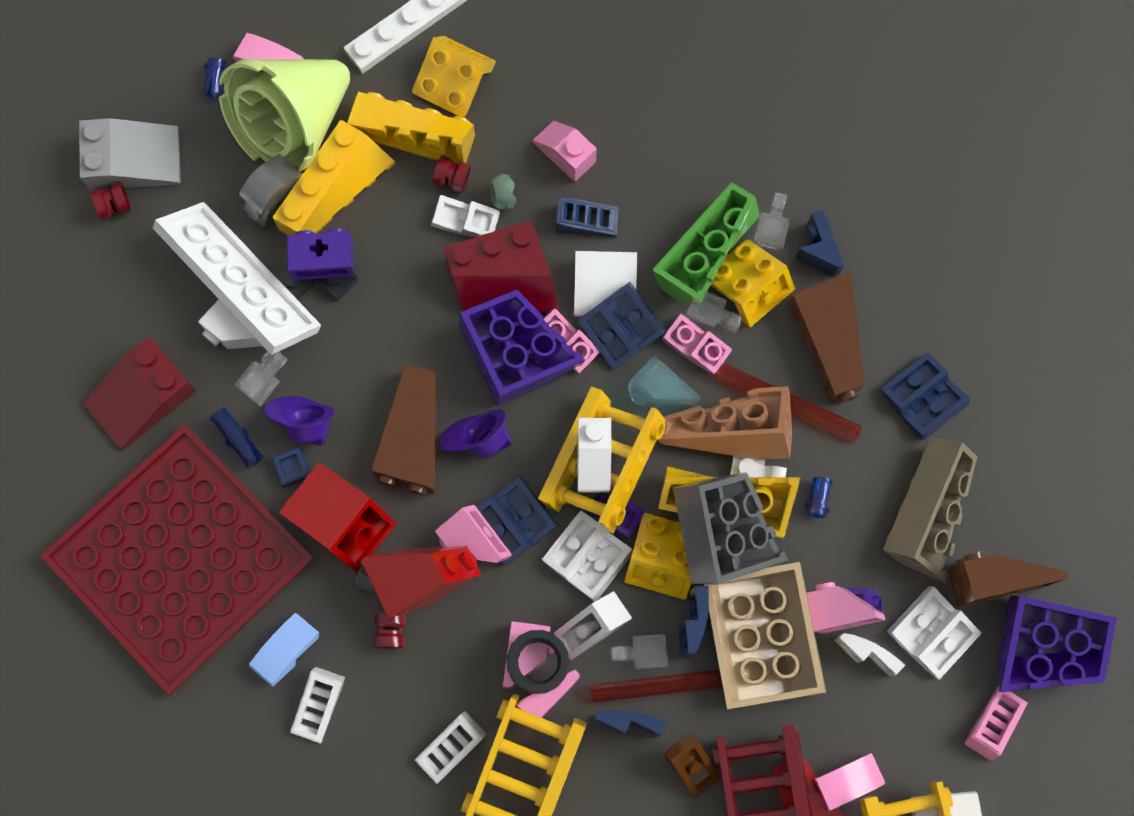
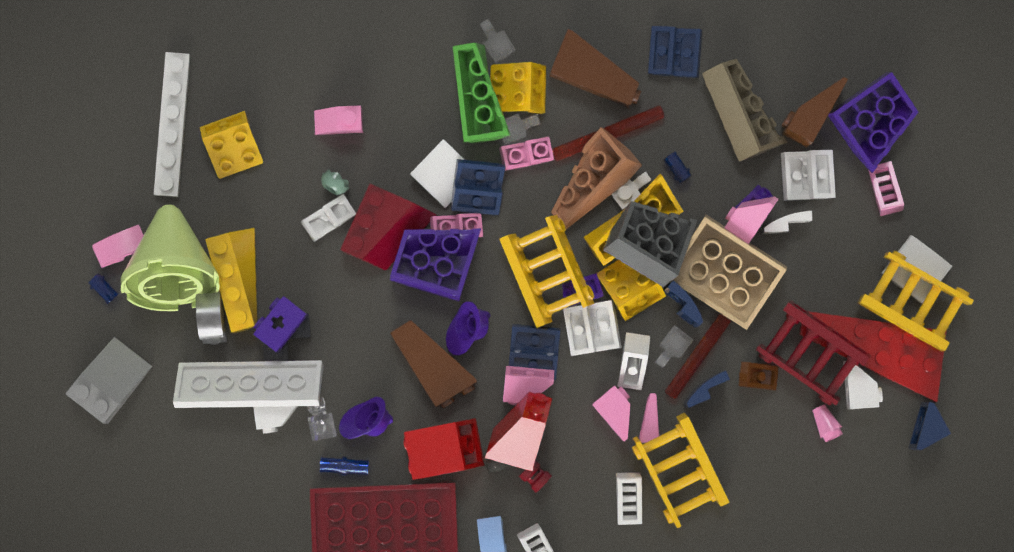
camera: 45 degrees left, 10 degrees up
(110, 201) = (130, 417): dark red wheel -> none
(138, 393) = (266, 500): dark red slope -> none
(291, 466) = (388, 449): dark blue tile -> none
(411, 128) = (244, 200): yellow wedge -> none
(451, 174) = (295, 202): dark red wheel -> none
(560, 650) = (647, 410): black tyre -> none
(576, 205) = (373, 153): dark blue slope -> none
(594, 454) = (543, 275): white slope -> none
(661, 388) = (534, 199): clear light blue slope -> none
(824, 252) = (541, 29): dark blue slope -> none
(849, 781) = (844, 298): bright pink slope -> none

